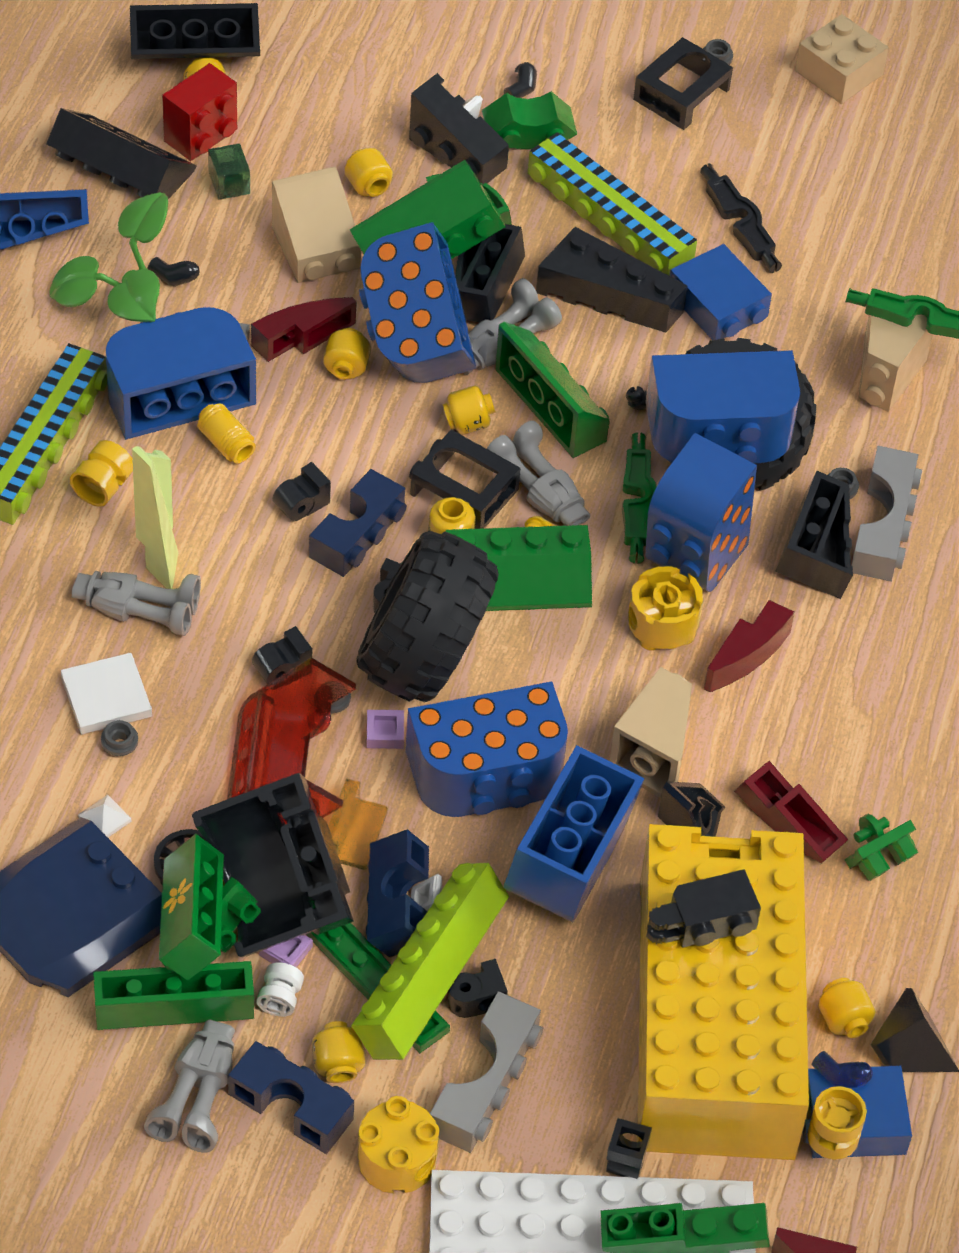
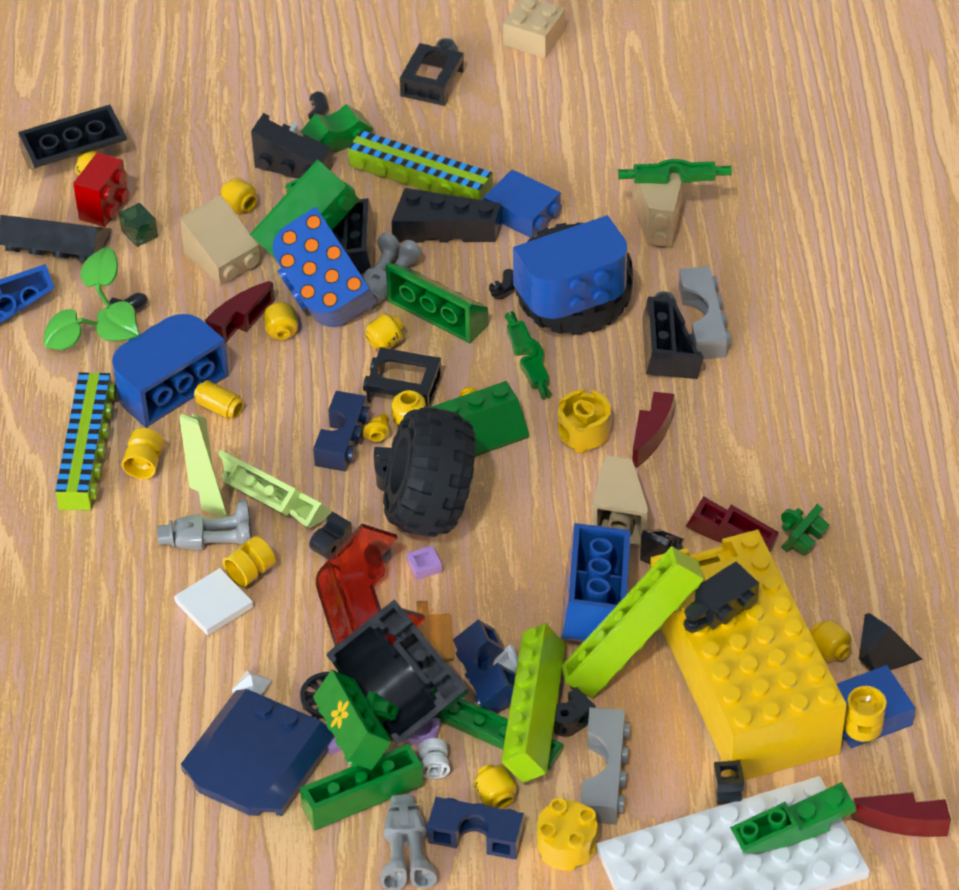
camera: 15 degrees left, 5 degrees down
(119, 730) = (238, 628): dark grey plate -> none
(165, 657) = (245, 563): none -> yellow wheel
(239, 575) = (272, 491): none -> yellowish green wedge
(304, 493) = (293, 423): black leg -> none
(403, 535) = (377, 428): none -> yellow plate
(487, 750) = (506, 551): blue brick -> none
(554, 490) = (465, 367): light grey piece -> none
(588, 901) = (632, 622): none -> lime brick
(702, 512) = (585, 343): blue brick -> none
(750, 228) = (521, 155): black piece -> none
(843, 1074) = (848, 683): clear blue arm -> none

